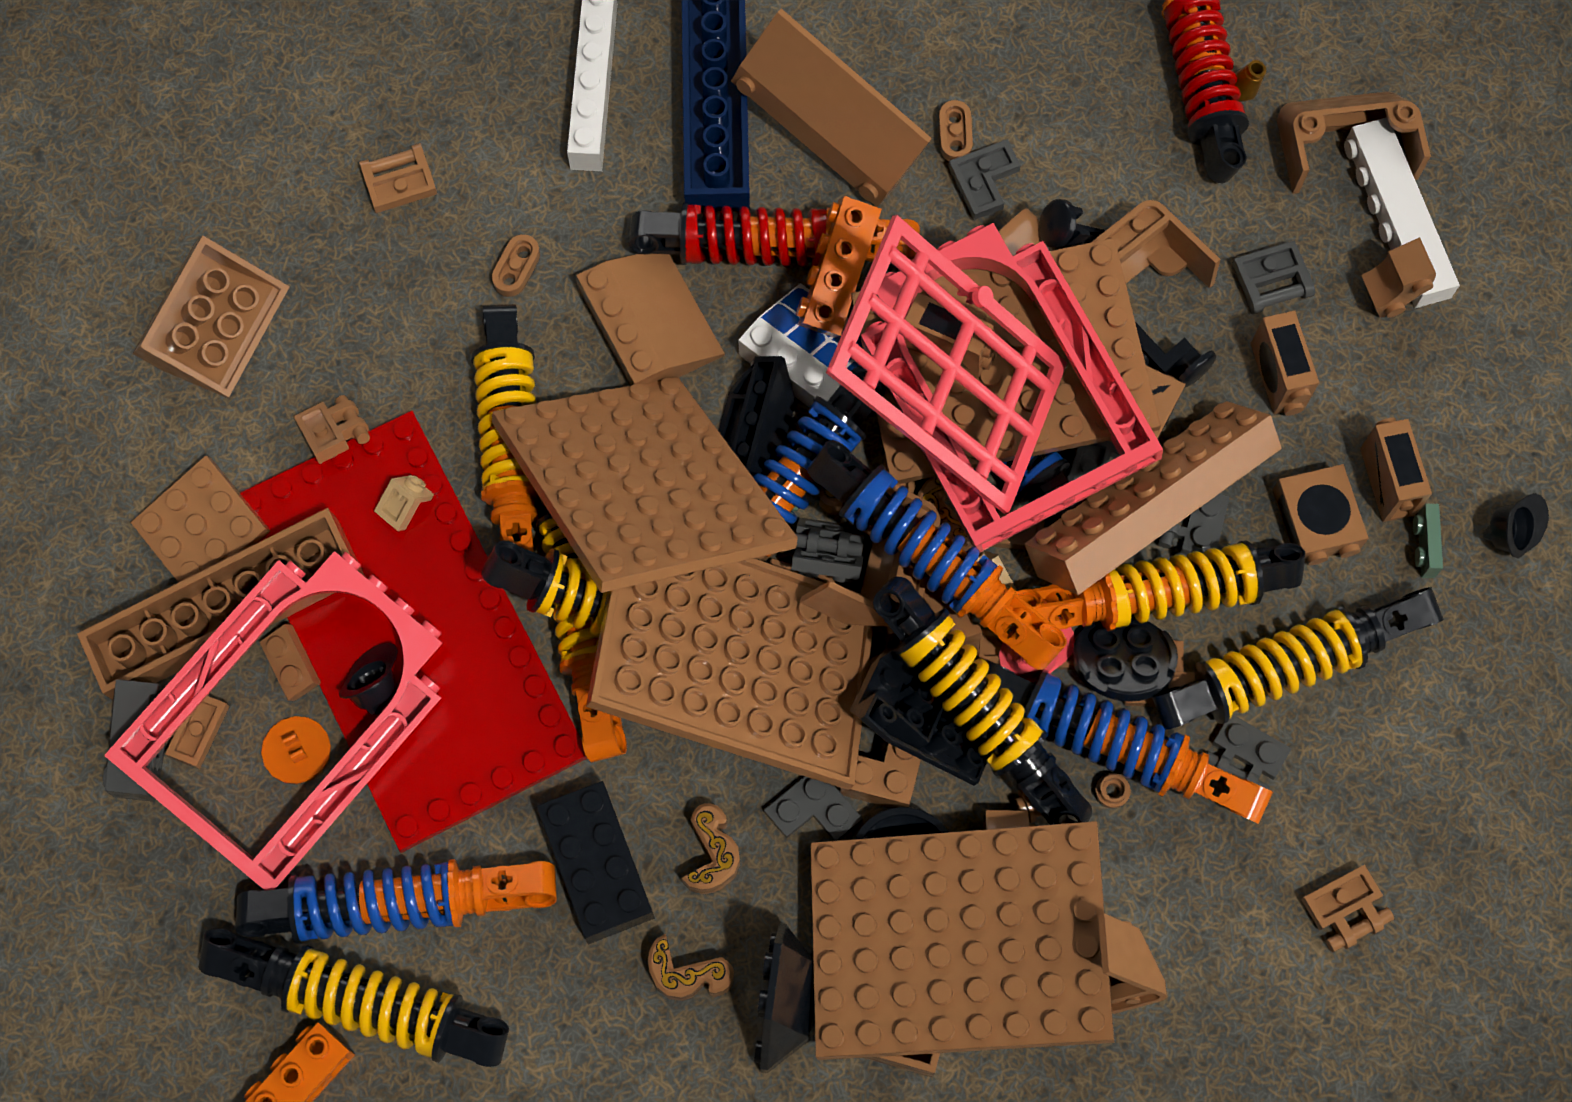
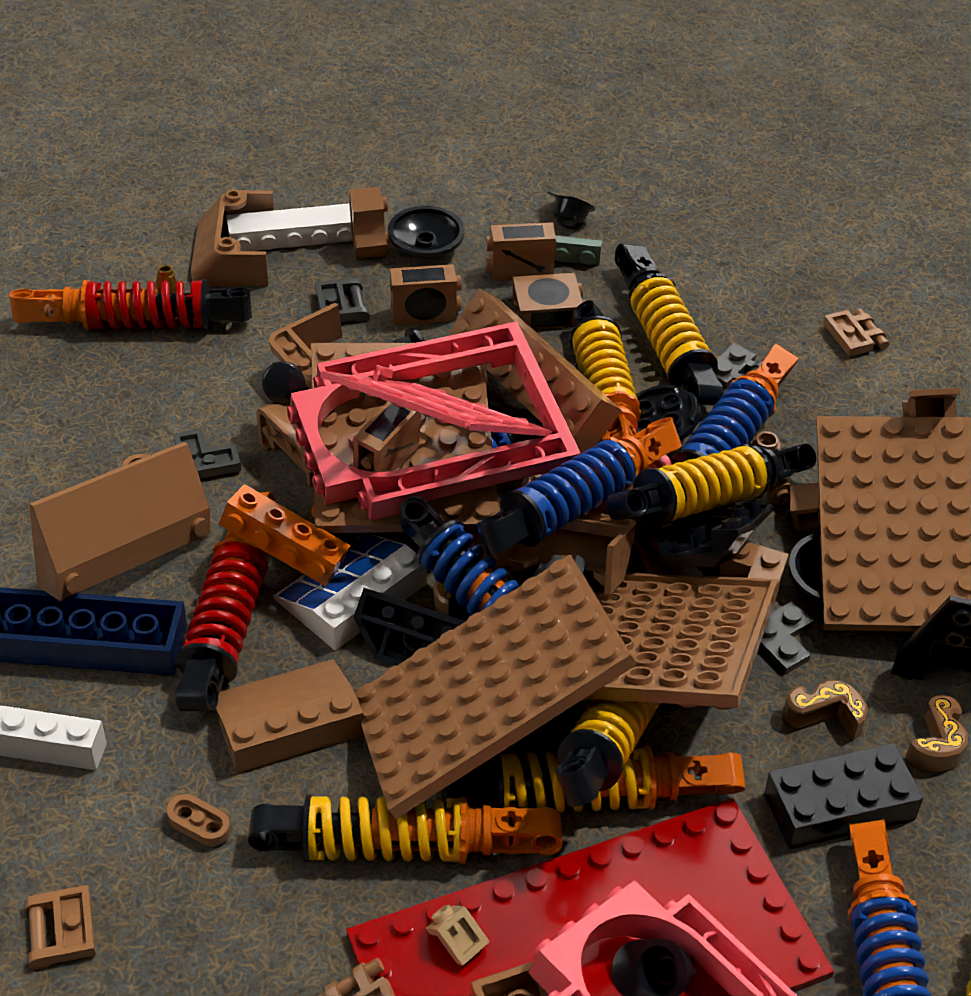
camera: 85 degrees left, 25 degrees down
(1424, 337) = (426, 231): none -> black dish

